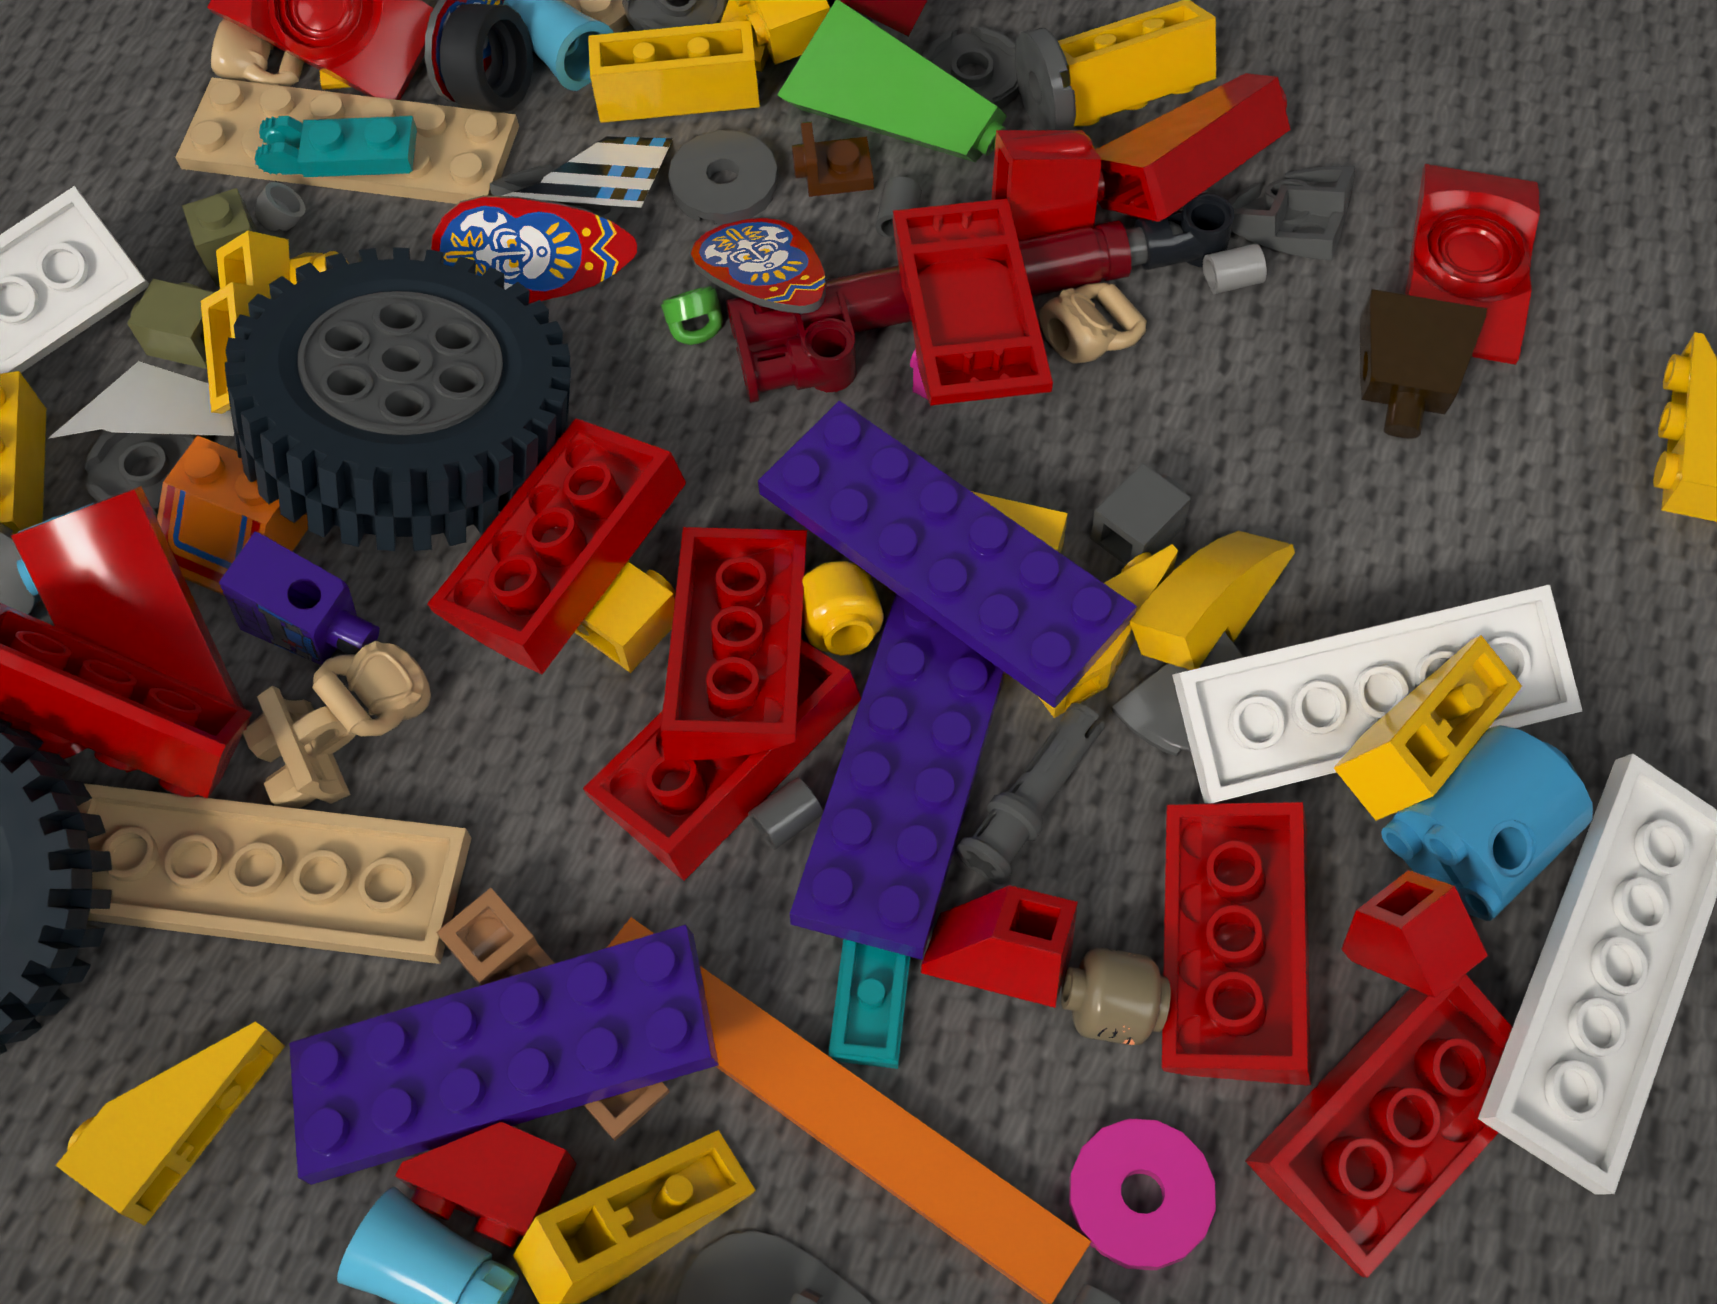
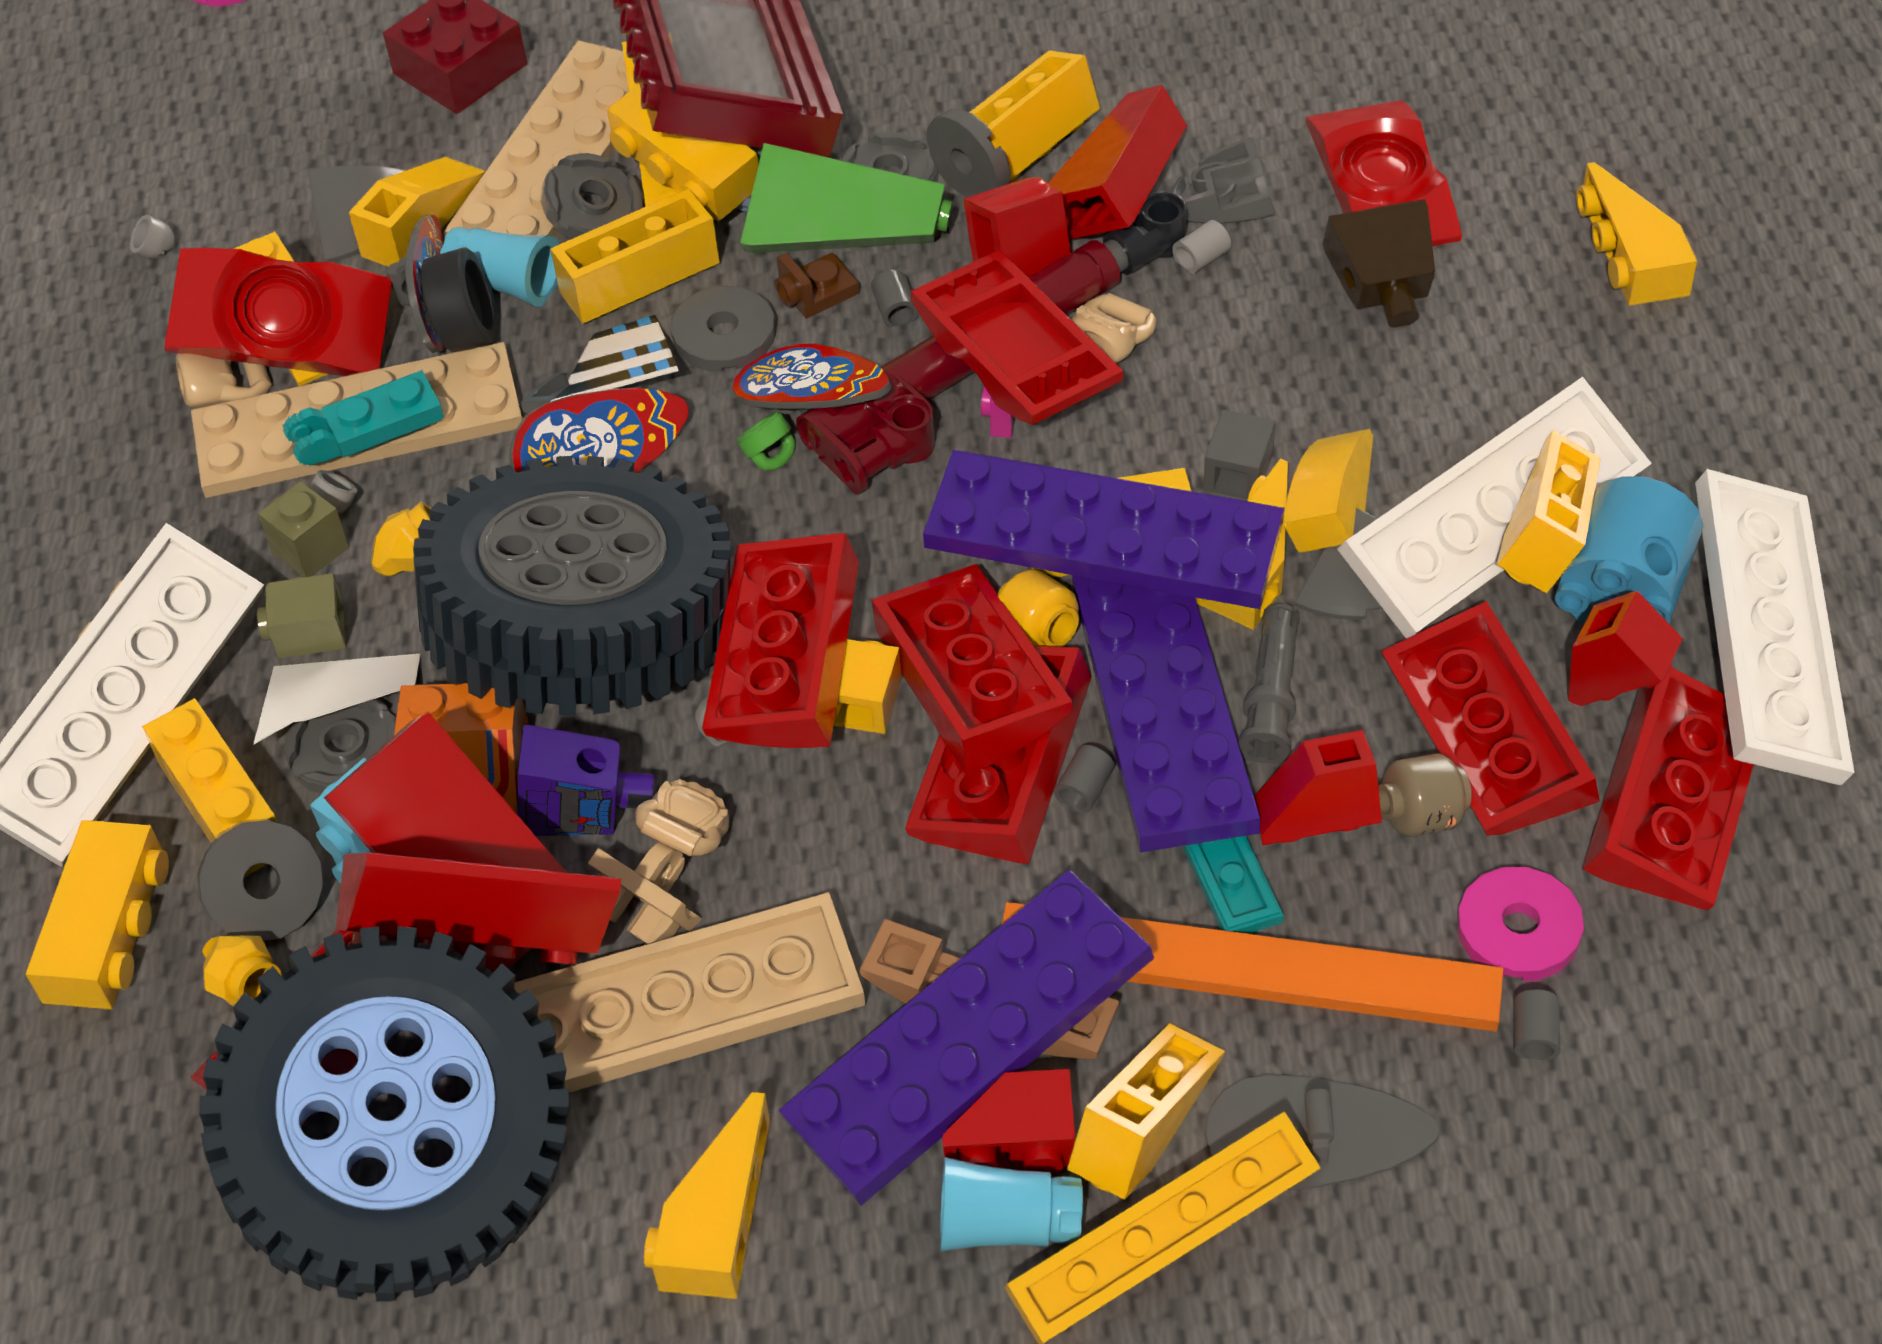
camera: 25 degrees left, 10 degrees down
(244, 271) = (373, 583): yellow slope -> none

